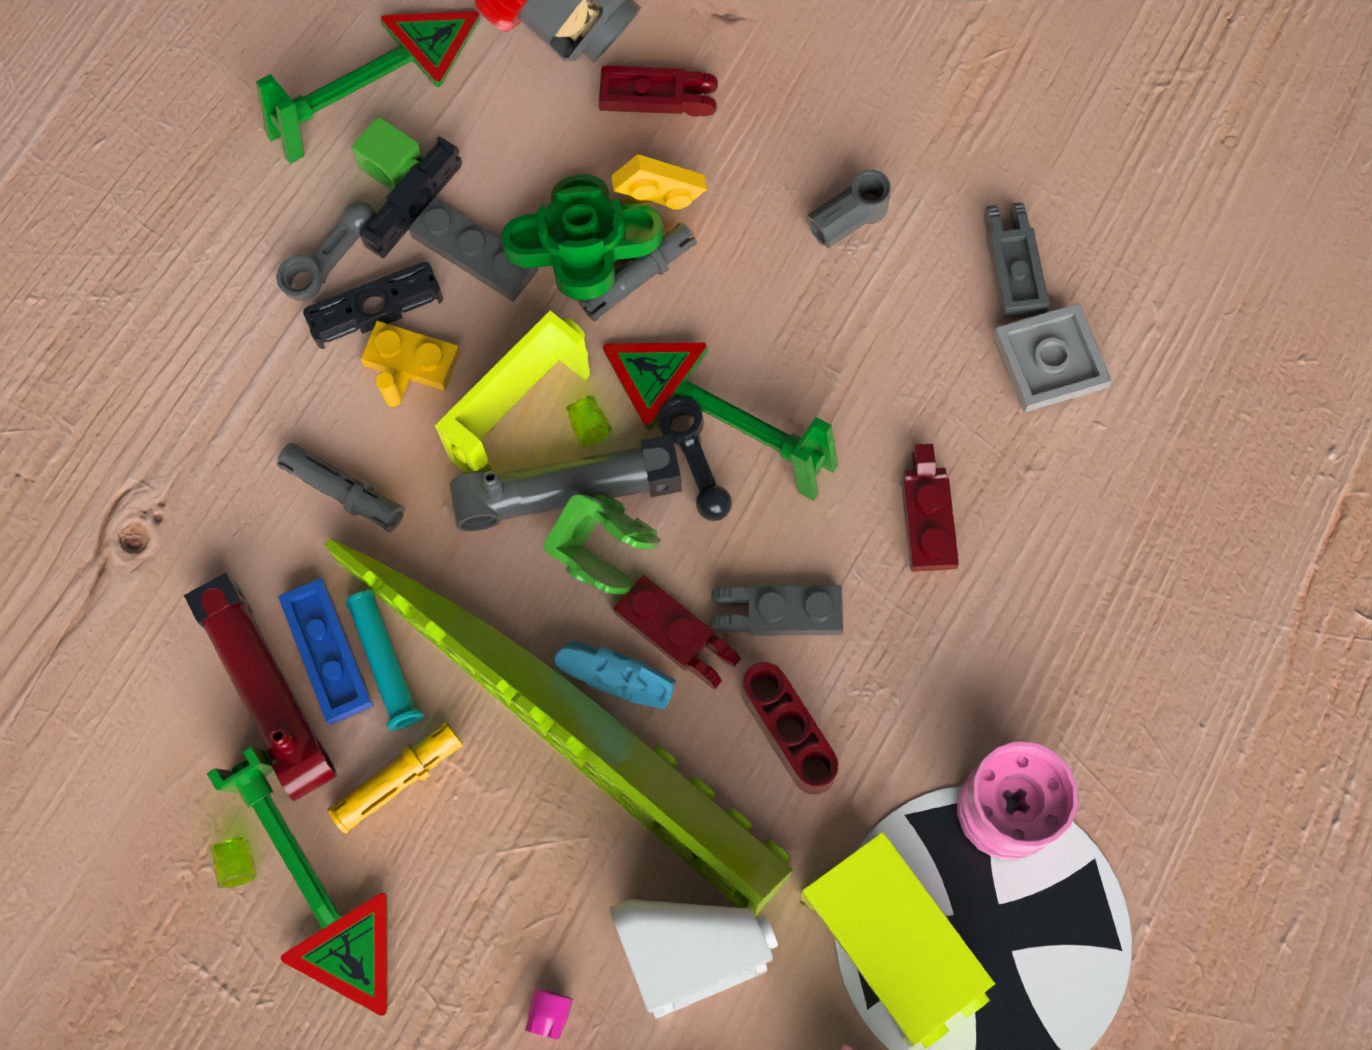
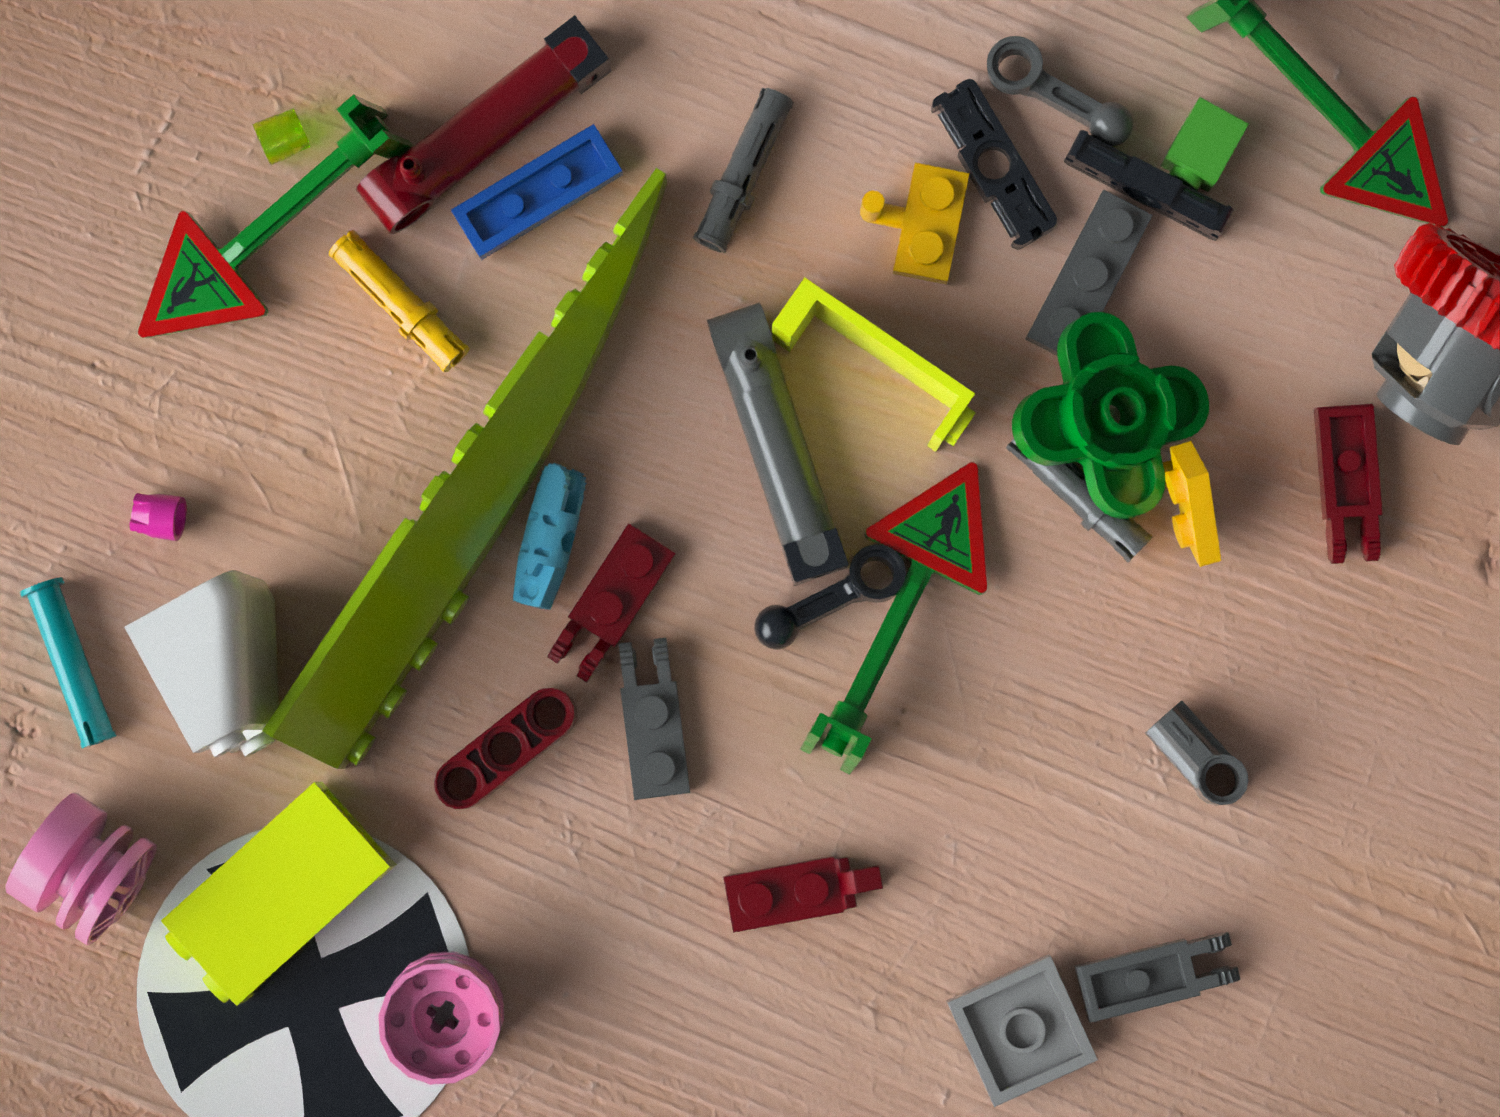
camera: 80 degrees right, 15 degrees up
(383, 661) = (535, 260): teal pin -> none
(575, 526) = (712, 523): bright green piece -> none
(588, 421) = (866, 458): clear neon green hose -> none

